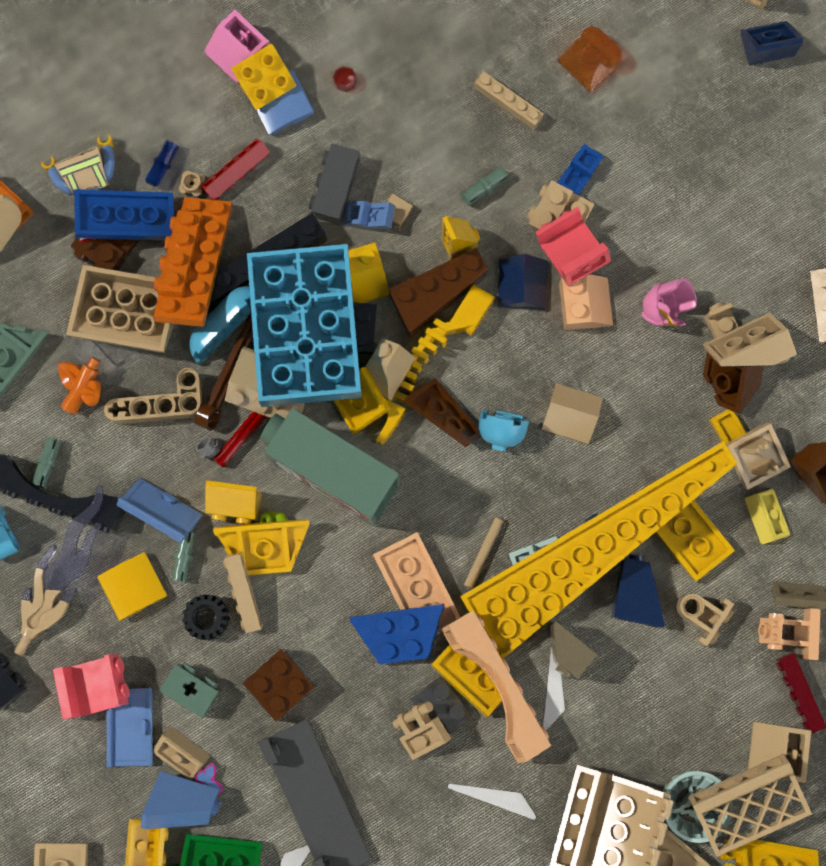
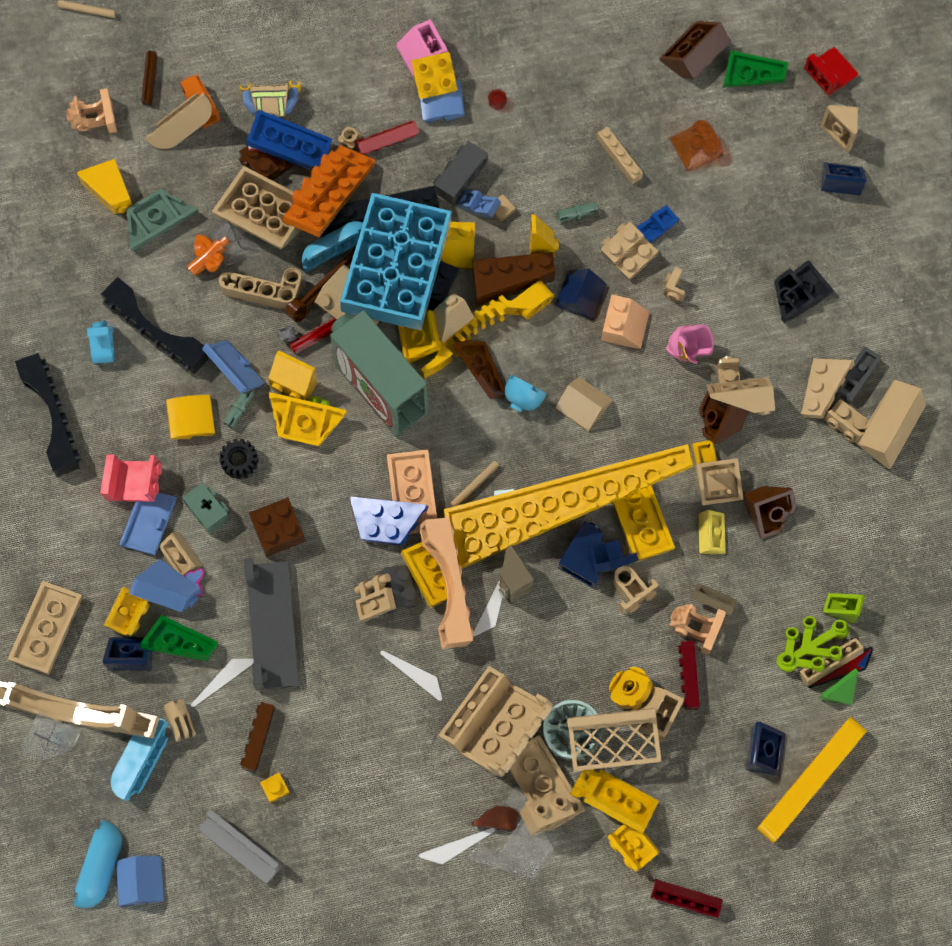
camera: 15 degrees right, 10 degrees down
(46, 462) = (159, 303): sand green pin -> none
(50, 581) = (113, 411): clear purple piece -> none
(161, 163) = (332, 115): clear blue axle -> none
(243, 592) = (274, 448): tan piece -> none
(572, 247) = (627, 274): coral panel -> none
(621, 233) = (672, 279): none -> tan bracket
(670, 591) = (610, 556): none -> dark blue panel
(758, 737) = (638, 695): none -> yellow plate
(768, 194) = (800, 290): none -> black slope

